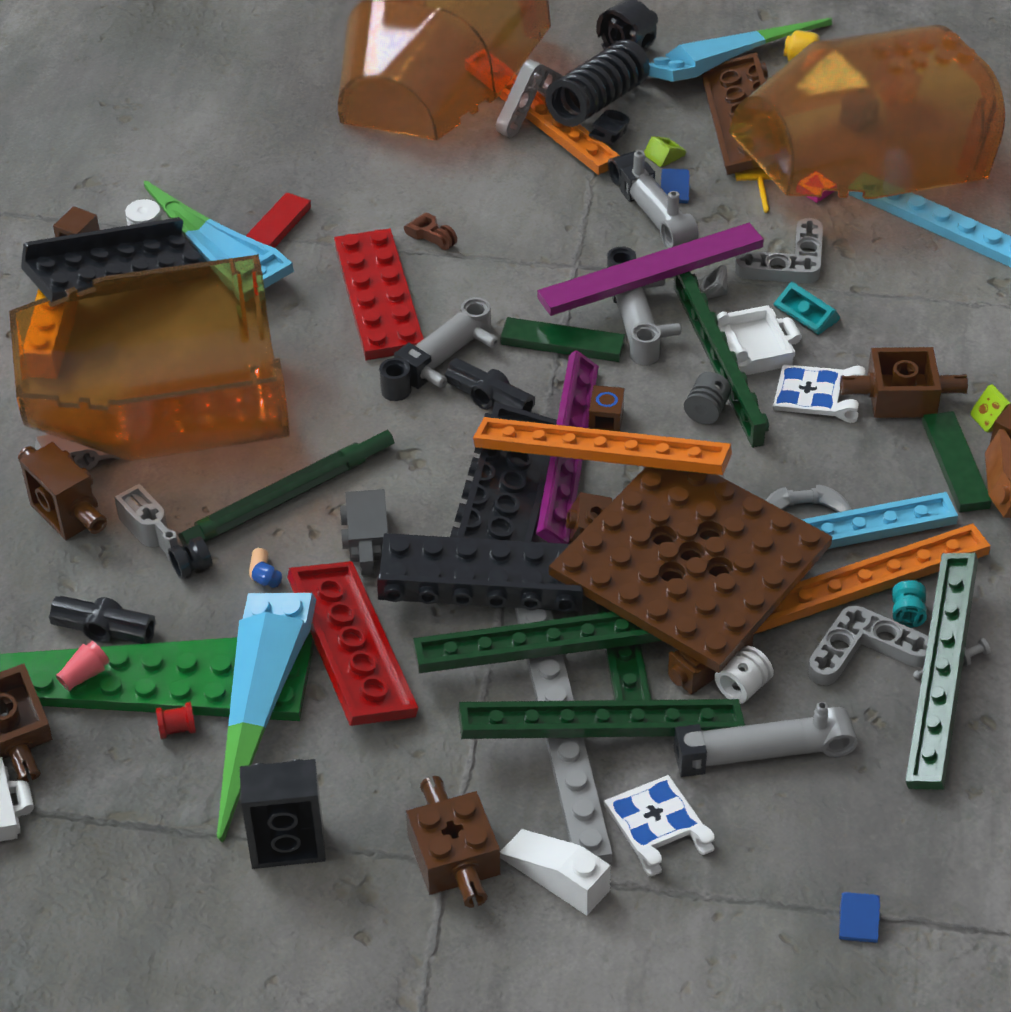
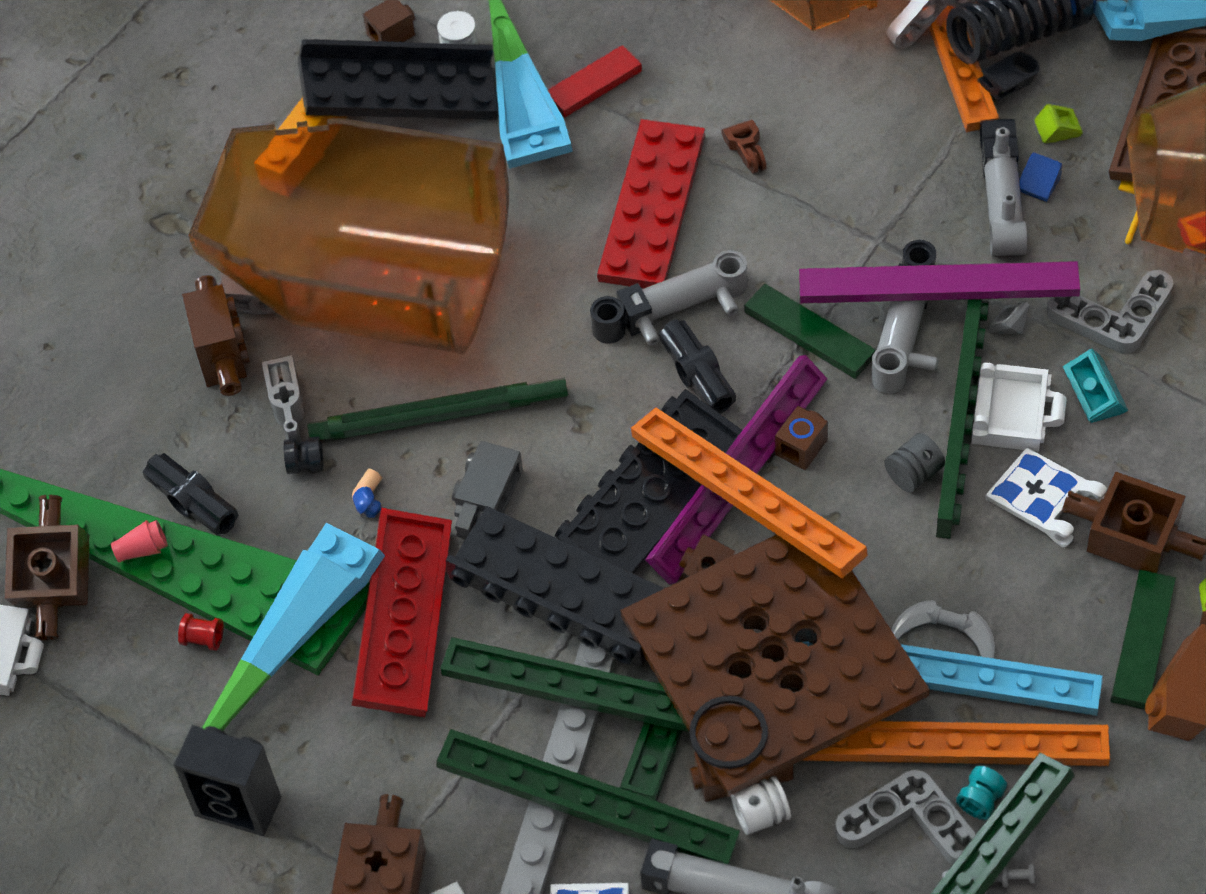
camera: 30 degrees right, 10 degrees up
(691, 644) = (728, 764): none -> black piece

